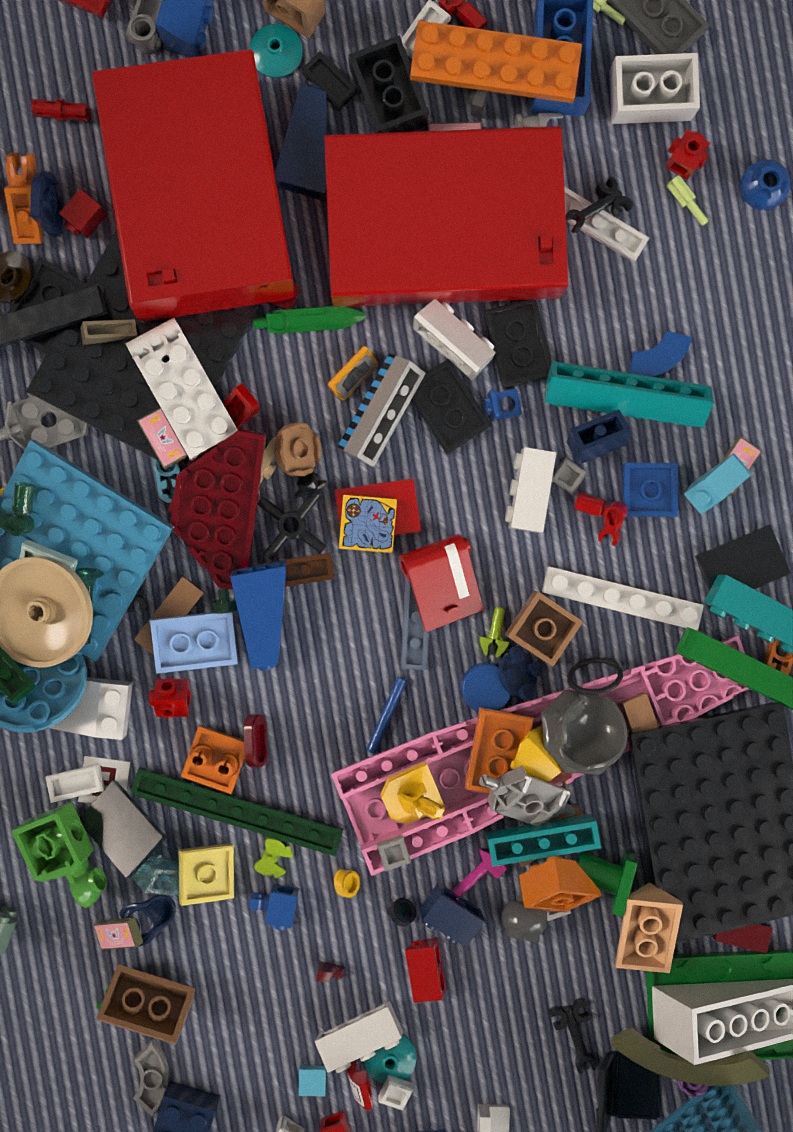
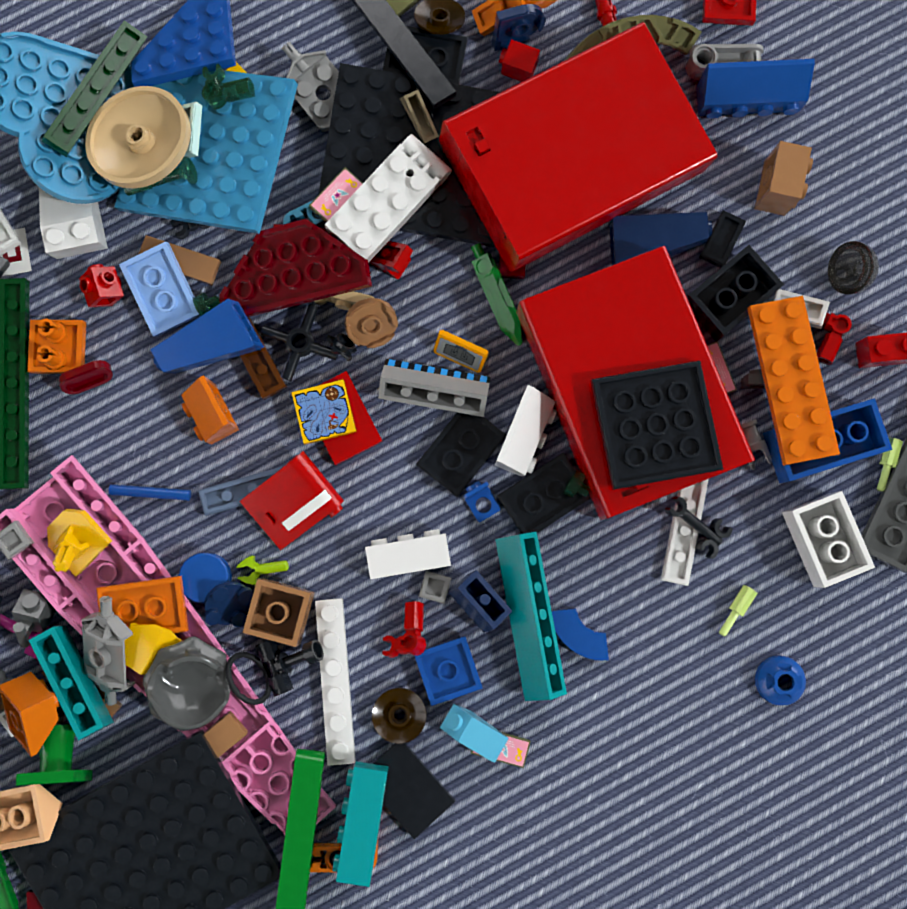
camera: 70 degrees right, 5 degrees down
(101, 55) = (664, 30): none -> olive tile
(281, 61) = (726, 192): teal dish -> none
(330, 634) = (208, 410): none -> orange slope
(467, 859) = (31, 614): none -> dark grey brick
(497, 206) = (656, 425): none -> black tile
(520, 307) = (576, 485): none -> clear green tile
(591, 643) = (281, 664): none -> black bar
(687, 154) = (779, 593): red brick -> none
(688, 549) = (395, 729): none -> dark brown dish

